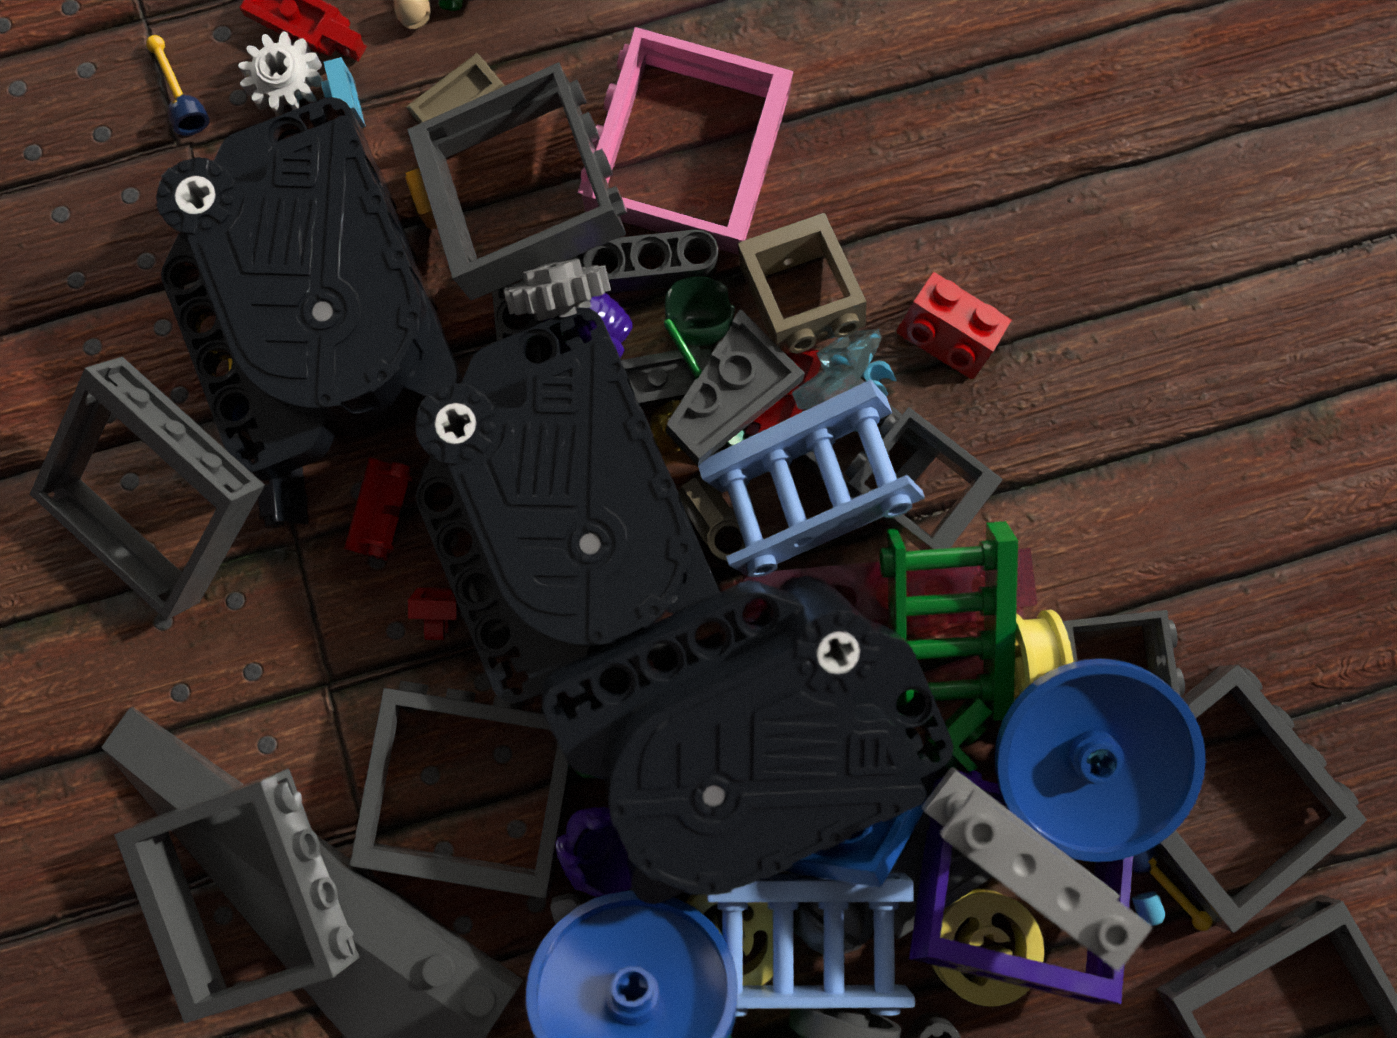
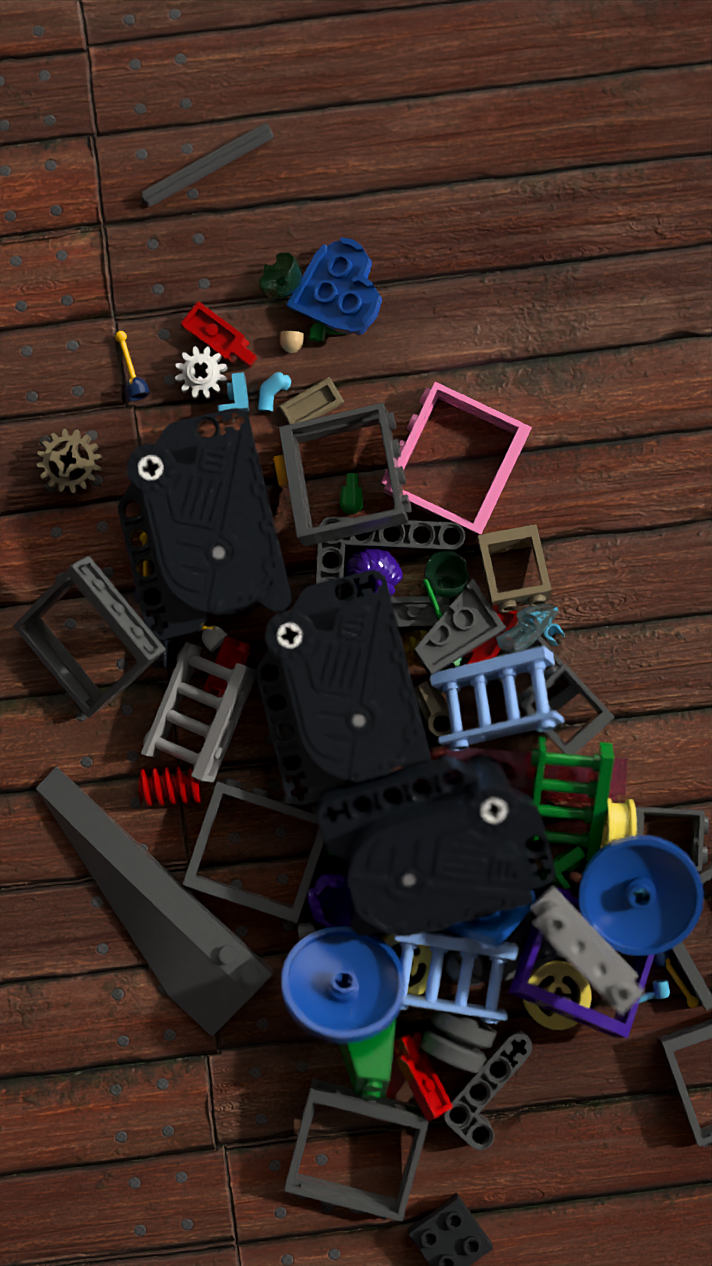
camera: 10 degrees right, 5 degrees up
(96, 237) = (67, 474): none -> dark tan gear
(177, 923) = (73, 901): dark grey window -> none
(311, 710) = (168, 786): none -> red piece
(350, 464) = (212, 637): none -> white hinge
(380, 593) = (228, 712): none -> light grey fence
(389, 83) = (269, 388): none -> medium azure arm
(436, 607) = (254, 736): red tile -> none
(535, 214) = (351, 496): none -> green cylinder
(557, 289) = (360, 554): light grey gear -> none
(953, 326) = (607, 607): red bracket -> none

